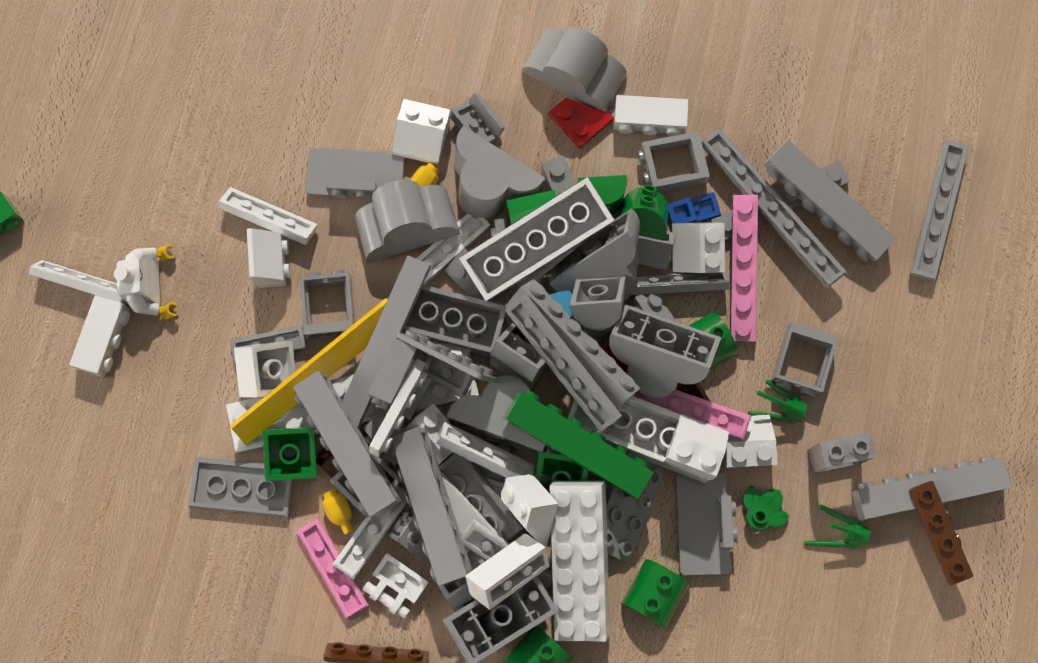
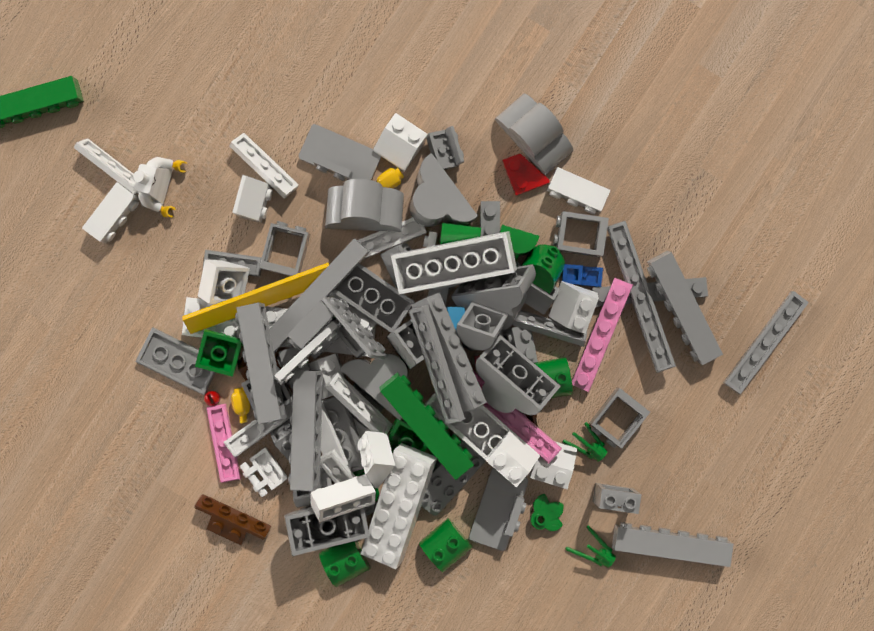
camera: 20 degrees right, 10 degrees up
(303, 514) = (215, 396): none -> red hinge
(941, 533) = (665, 580): reddish brown bracket -> none

